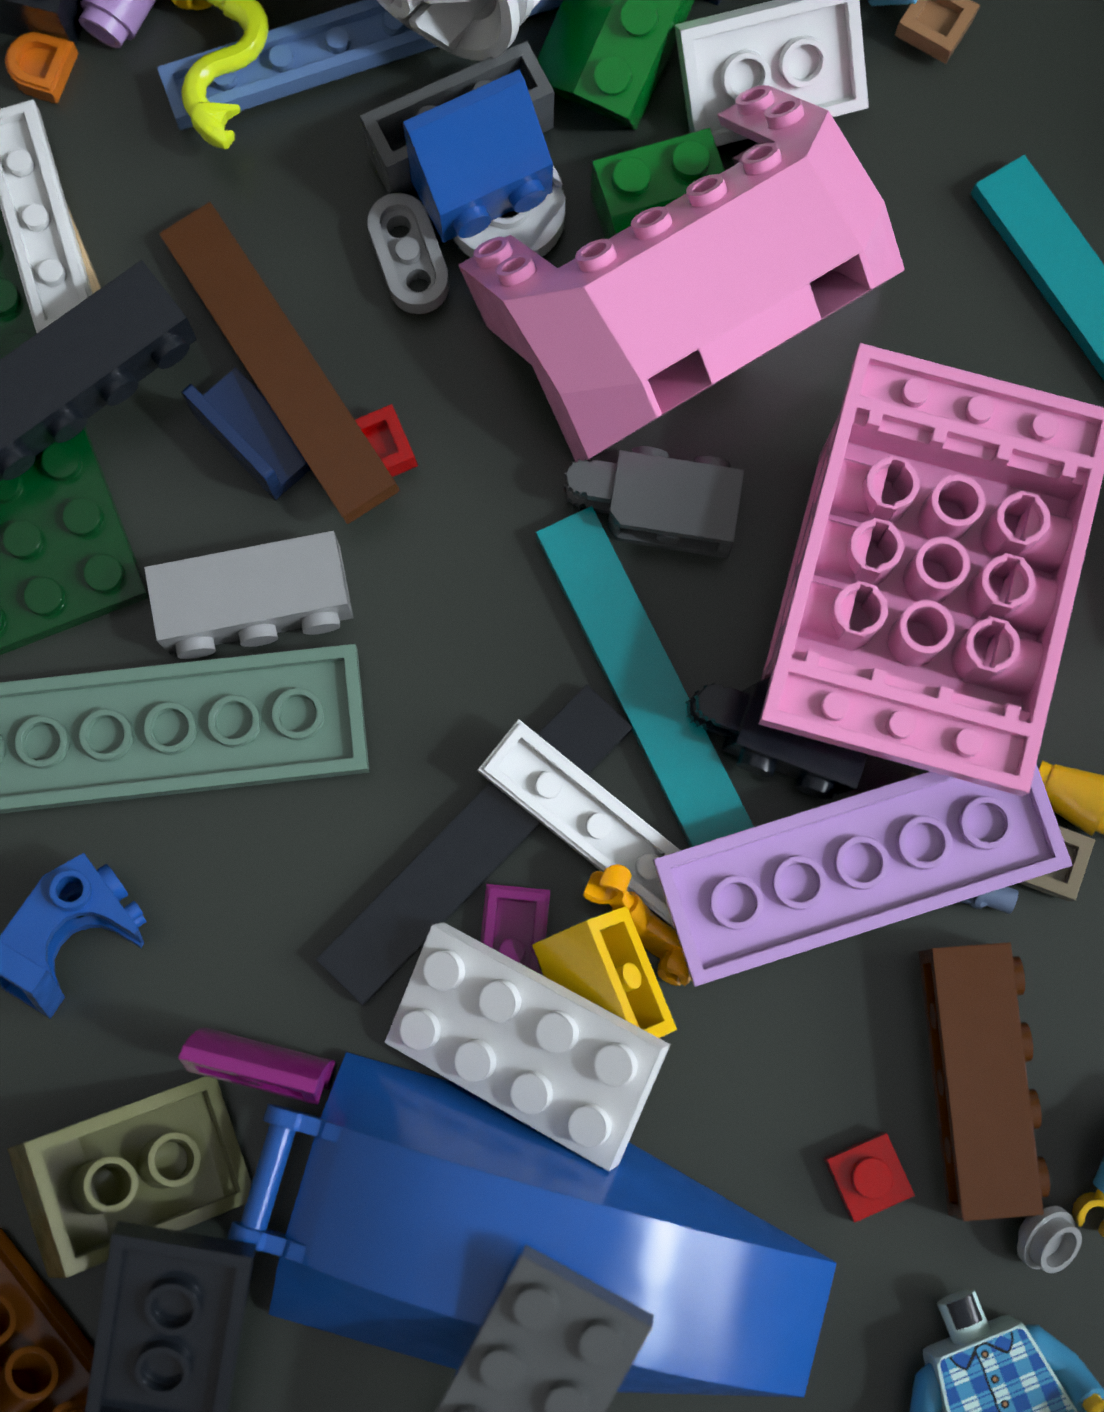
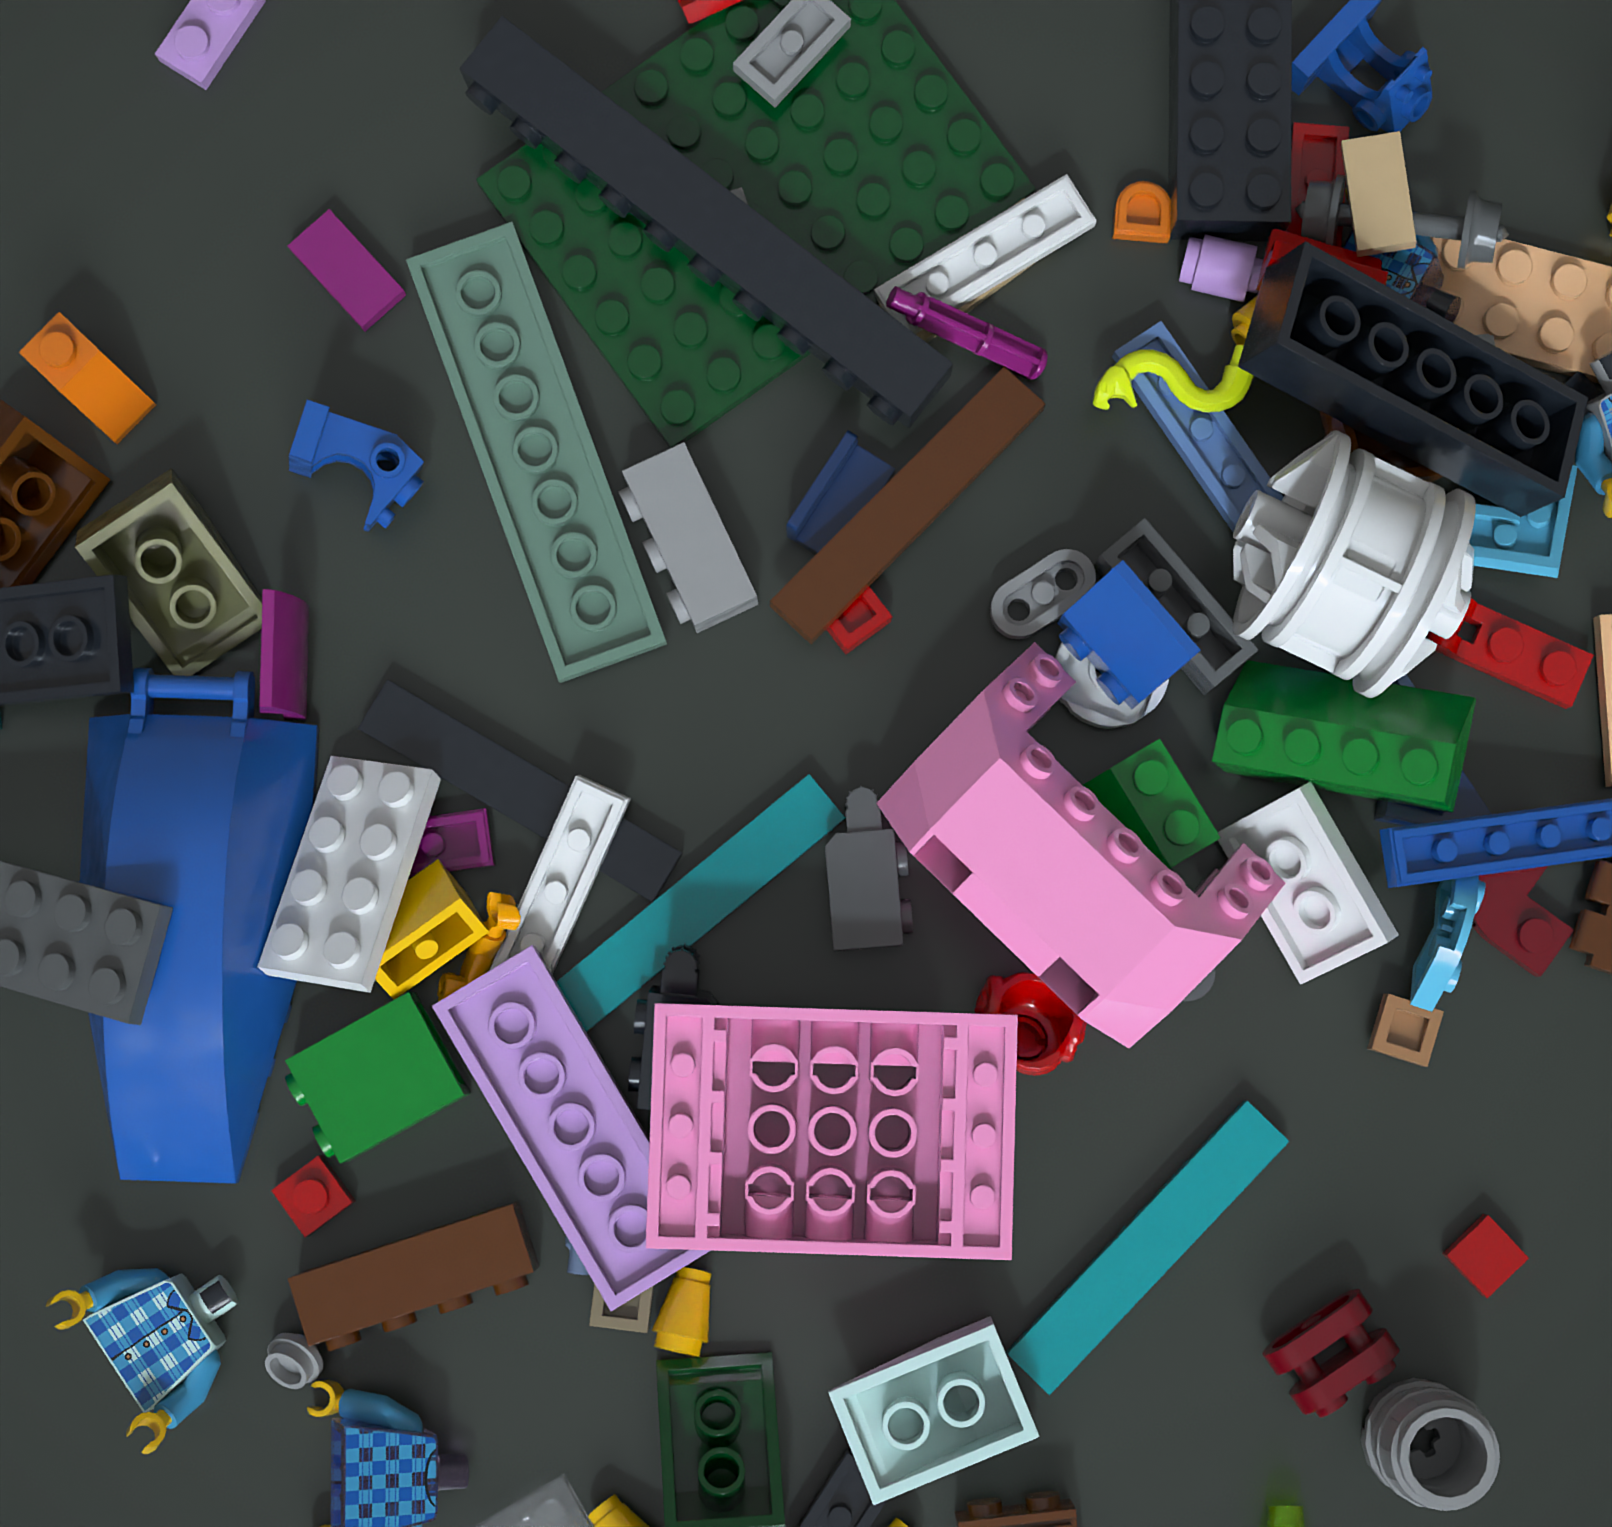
camera: 80 degrees right, 5 degrees up
(112, 252) = (969, 332): none -> magenta piece
(758, 1075) = (375, 1078): none -> green brick
(831, 352) = (1046, 1025): none -> red hair

